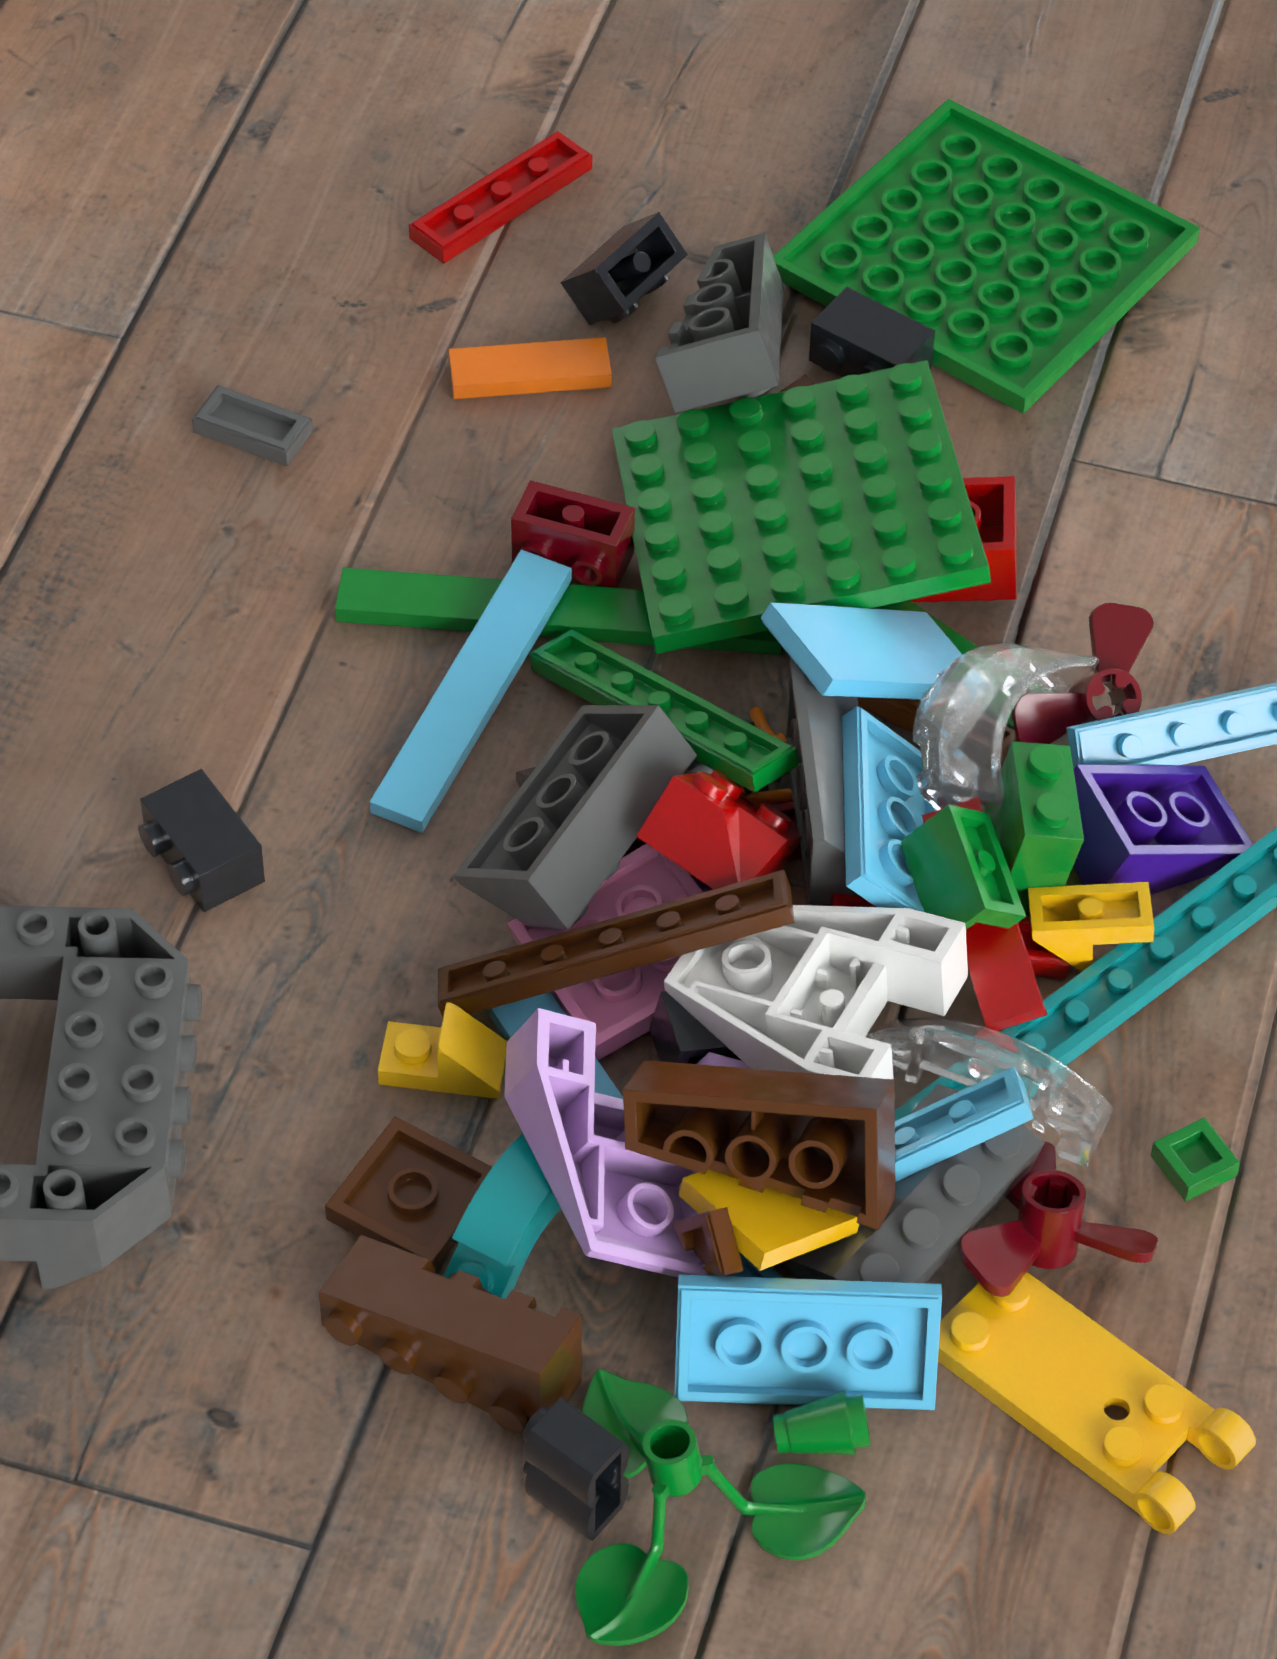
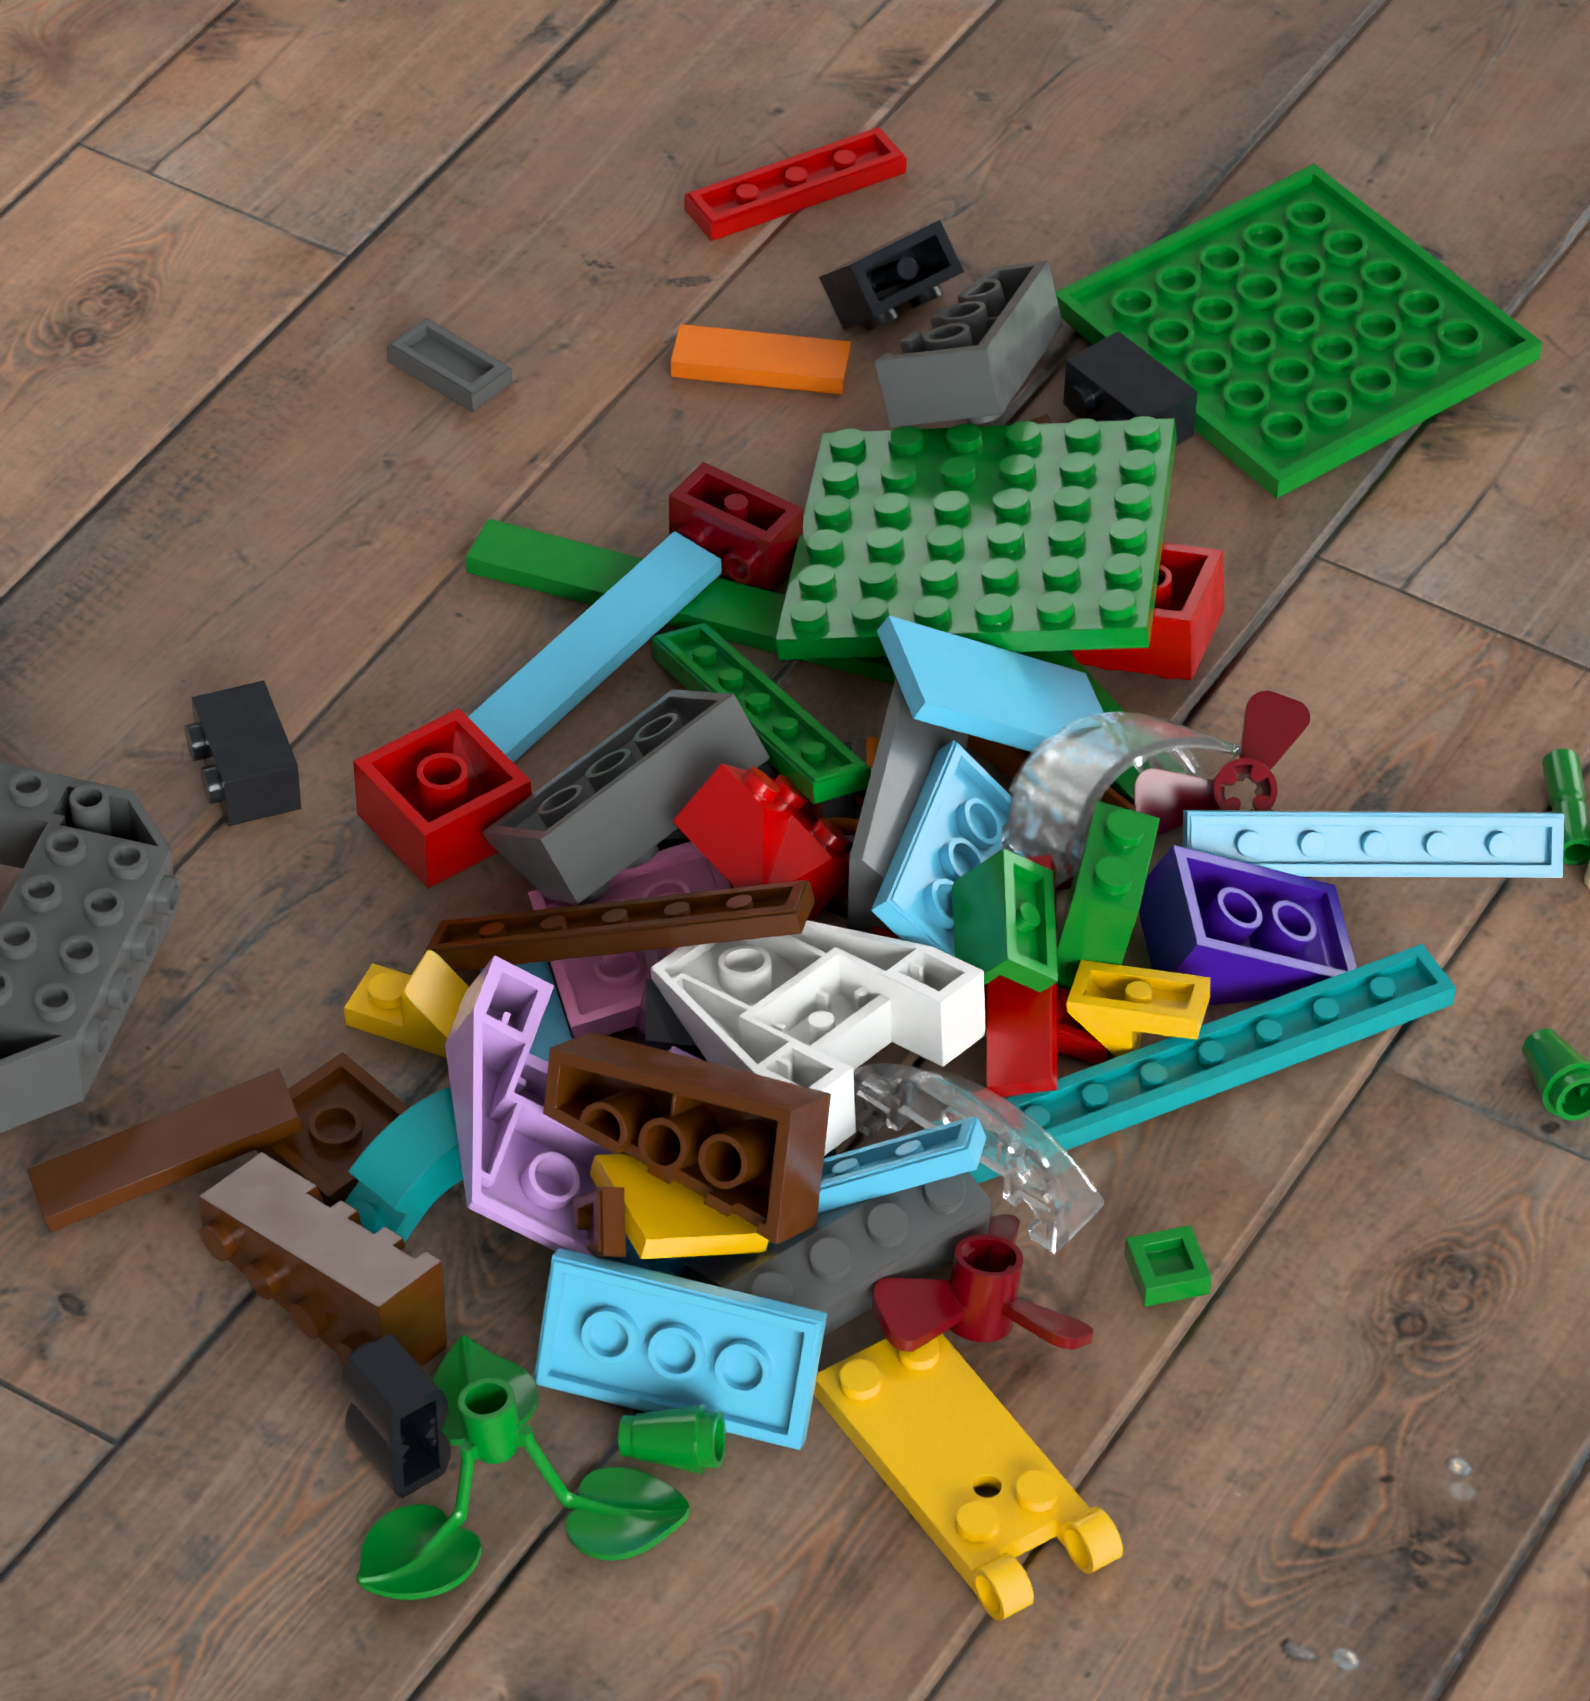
camera: 15 degrees right, 5 degrees down
(264, 1249) = (164, 1150): none -> reddish brown tile
(399, 847) = (437, 795): none -> red slope

